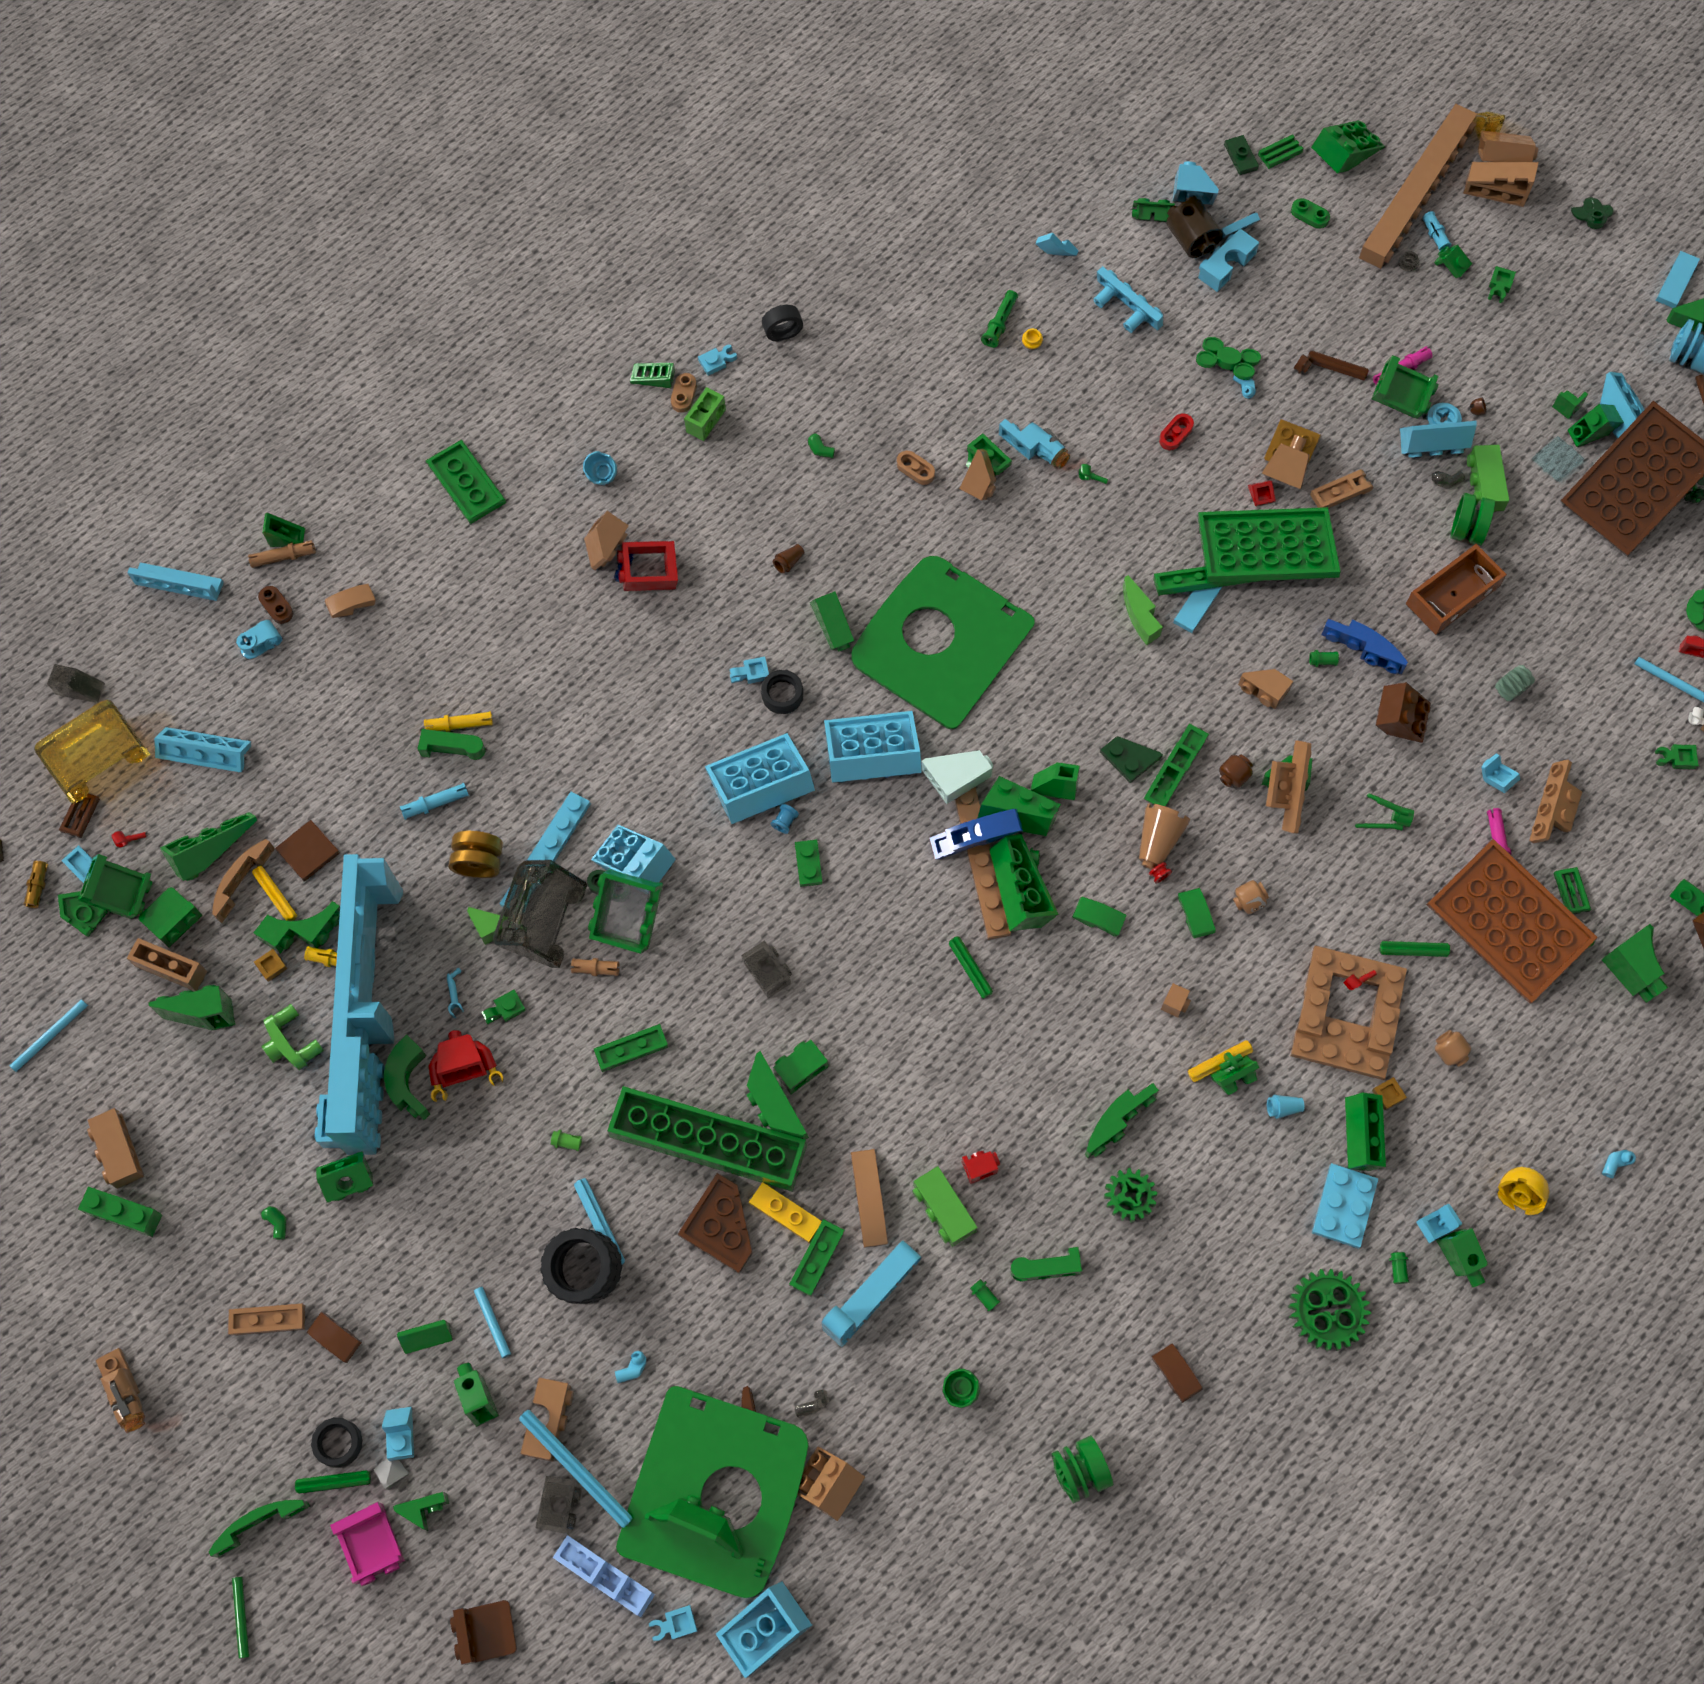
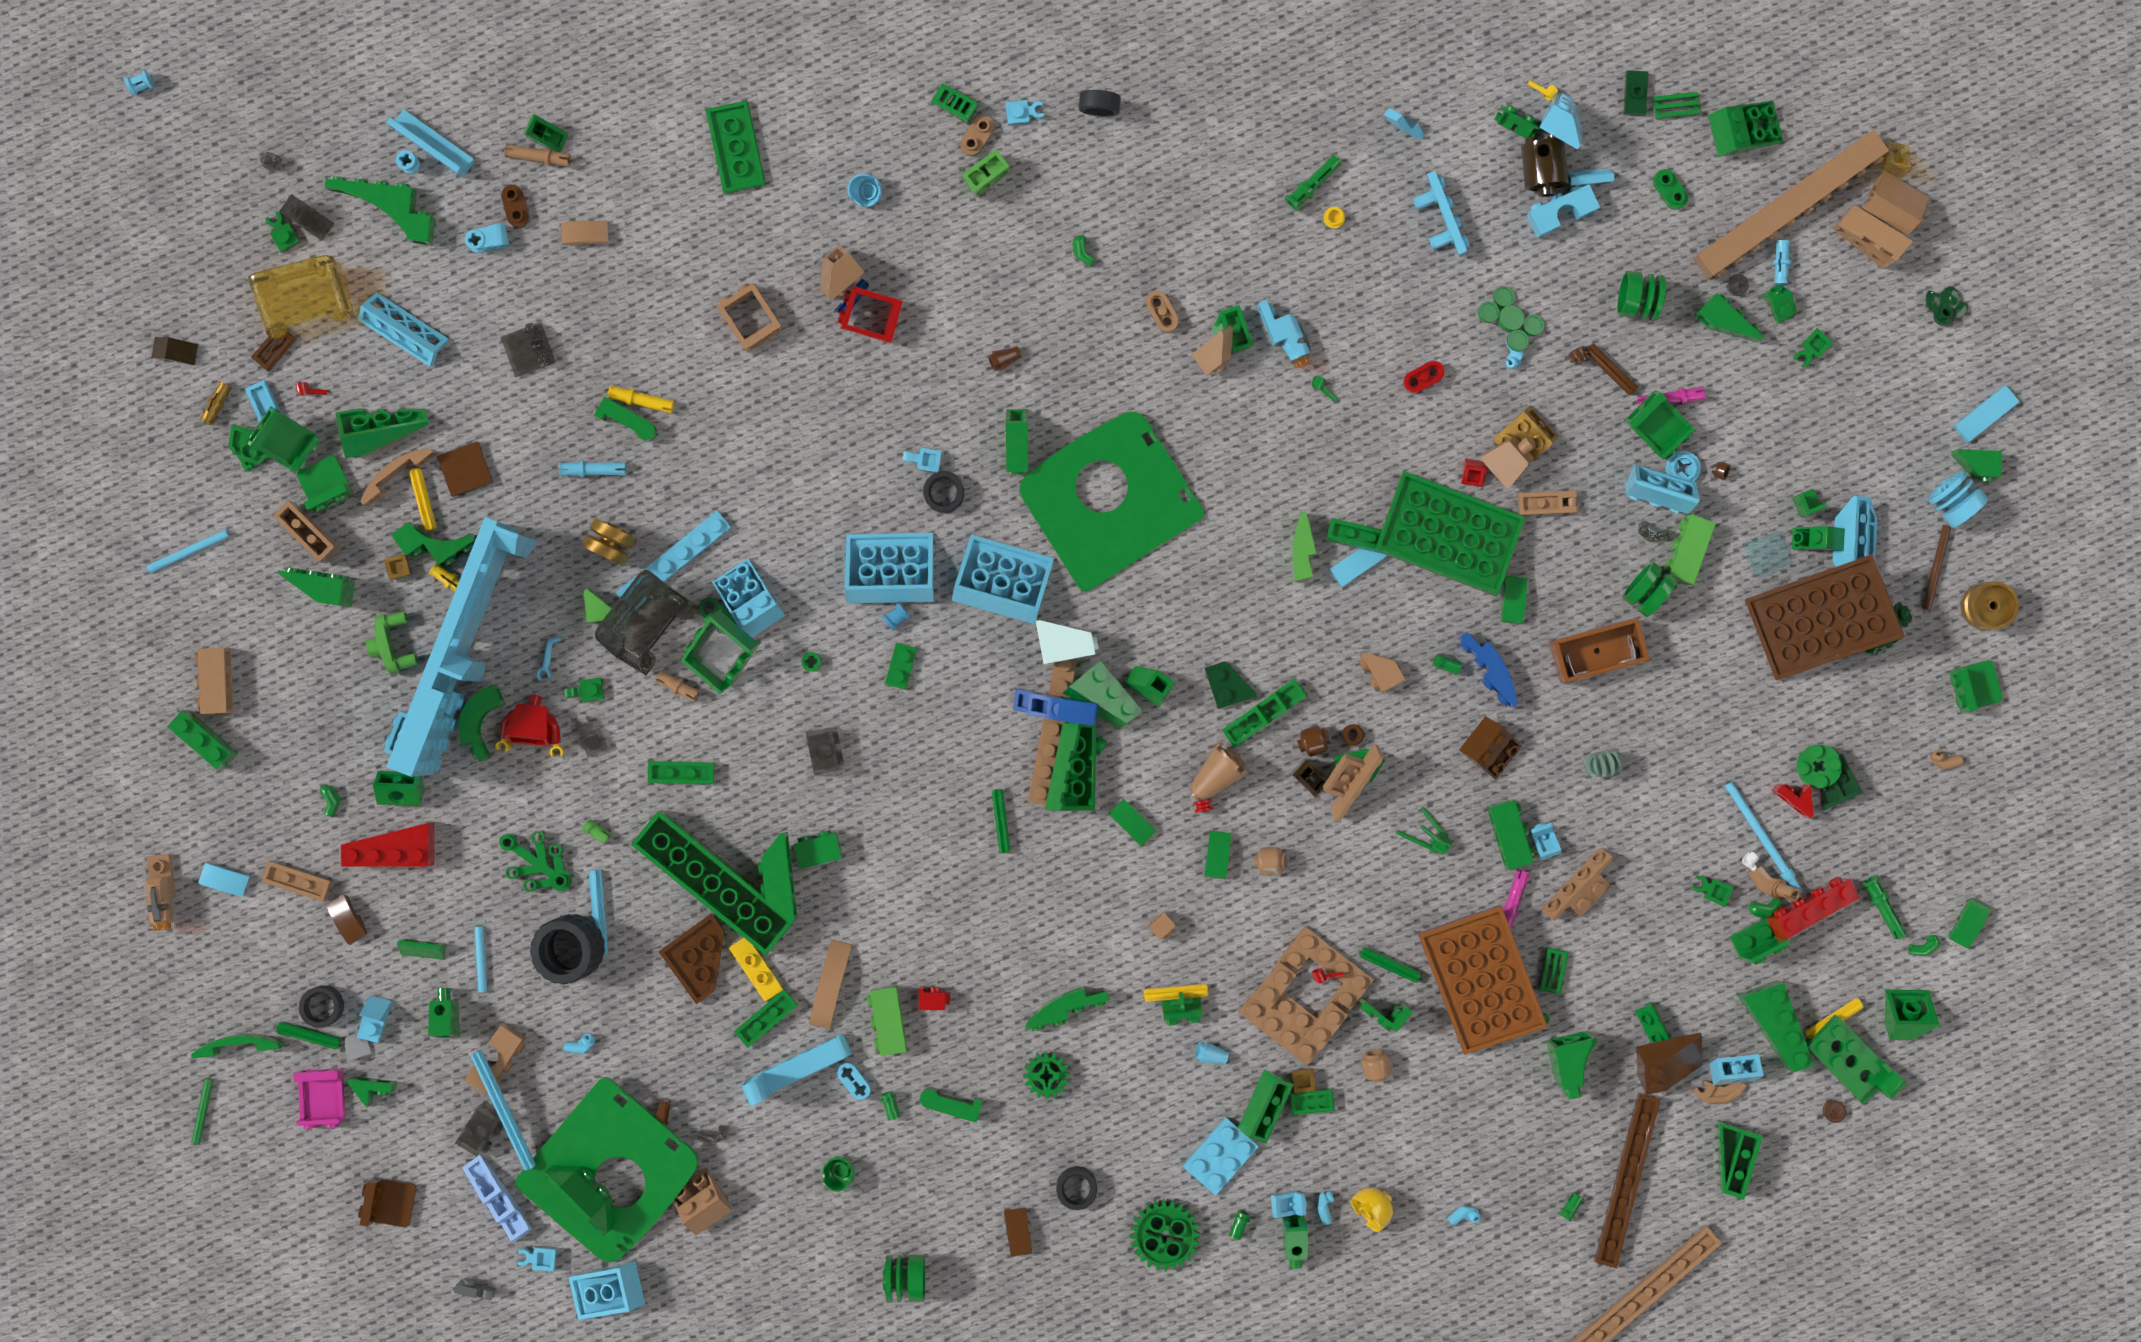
camera: 20 degrees right, 20 degrees up
(26, 651) = (271, 161): none -> clear smoke plate
(56, 711) = (284, 234): none -> green plate
(154, 641) = (394, 200): none -> green arch
(155, 603) = (406, 155): none -> medium azure bush
(186, 1350) = (223, 879): none -> medium azure slope
(332, 720) = (528, 349): none -> clear smoke hinge
(358, 1242) = (398, 848): none -> red wedge
(517, 1198) = (538, 864): none -> green plant
(527, 1053) = (592, 739): none -> clear smoke plate
(551, 624) = (761, 335): none -> medium nougat window
(719, 885) = (806, 657): none -> green bush
(939, 1281) = (858, 1077): none -> medium azure beam
(1167, 182) = (1548, 93): none -> yellow hand
(1225, 1283) = (1071, 1204): none -> black tyre
(1247, 805) = (1309, 777): none -> dark brown slope
(1272, 748) = (1345, 734): none -> reddish brown plate
(1332, 294) = (1645, 296): none -> green wheel
(1356, 581) = (1514, 599): none -> green slope
(1408, 1111) = (1311, 1102): none -> green plate
(1415, 289) = (1723, 318): none -> green slope
(1439, 996) = (1397, 1013): none -> green bracket
(1463, 781) = (1510, 834): none -> green brick
(1471, 1205) = (1324, 1213): none -> medium azure arm

